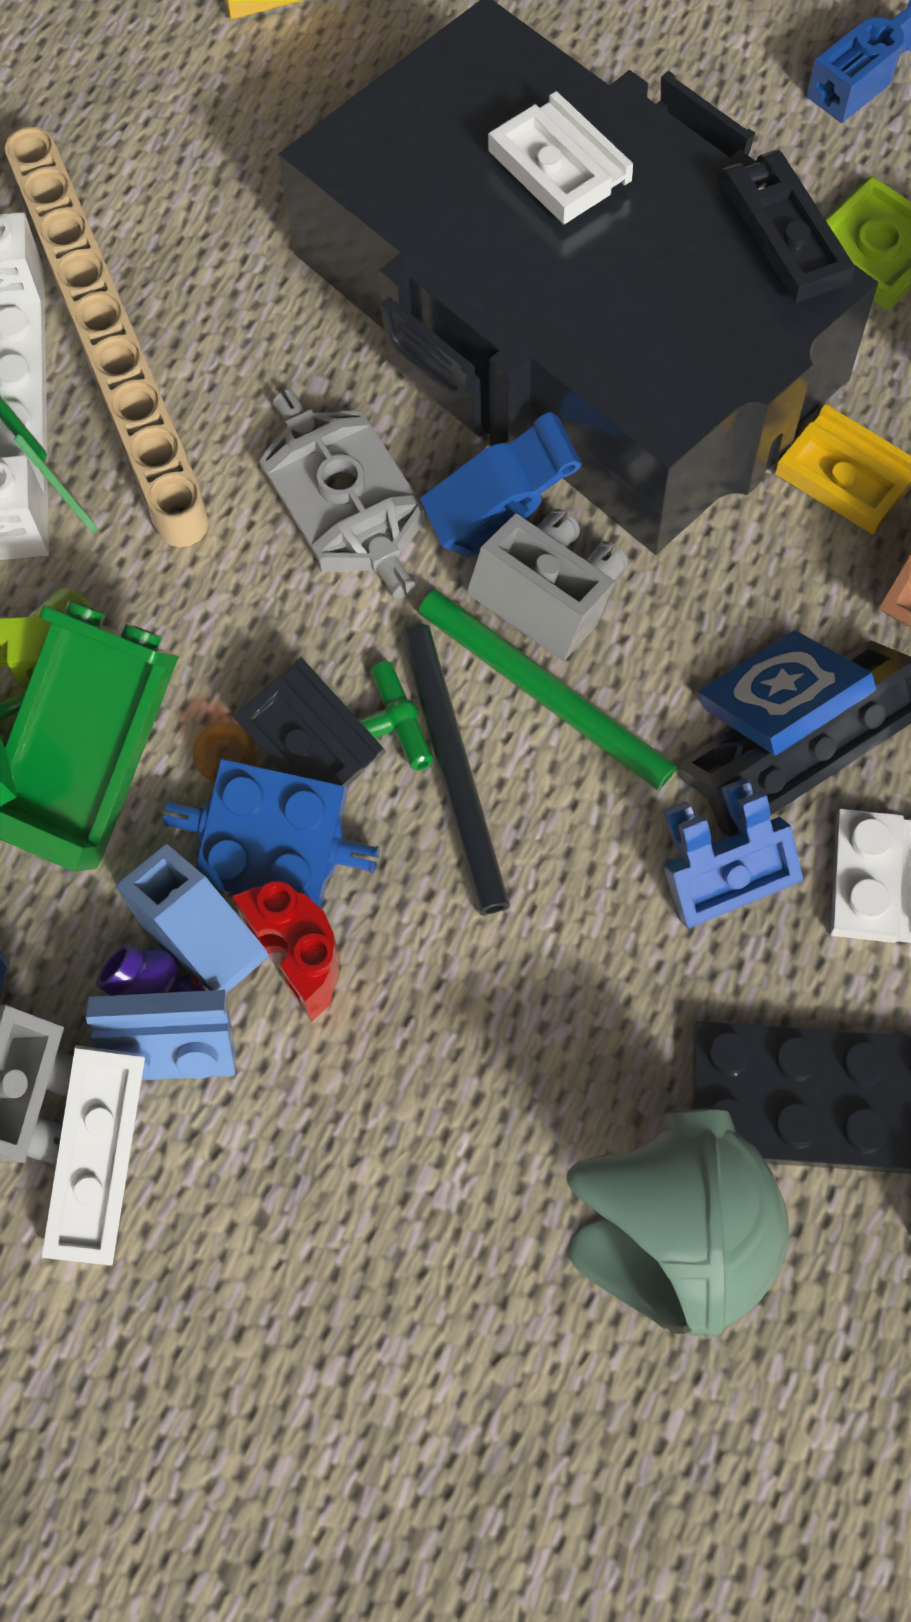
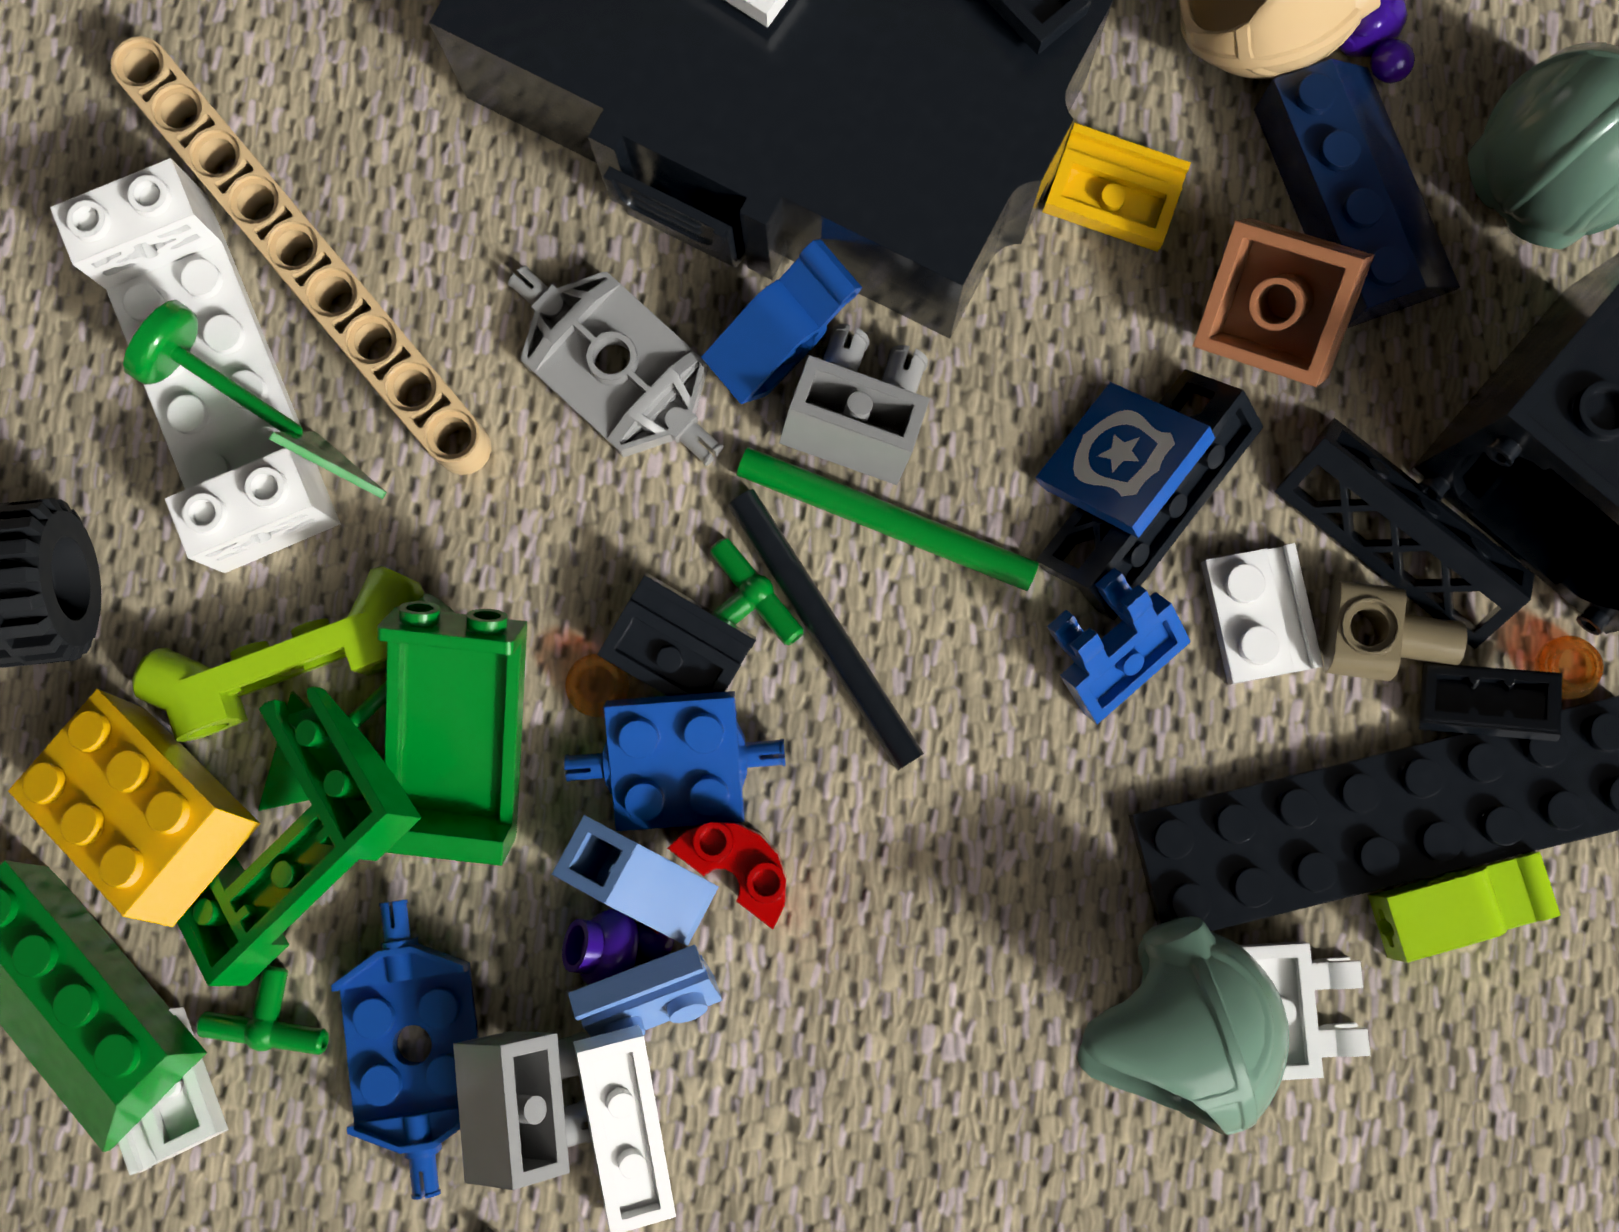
camera: 20 degrees left, 15 degrees up
(799, 1289) = (1296, 980): none -> white plate

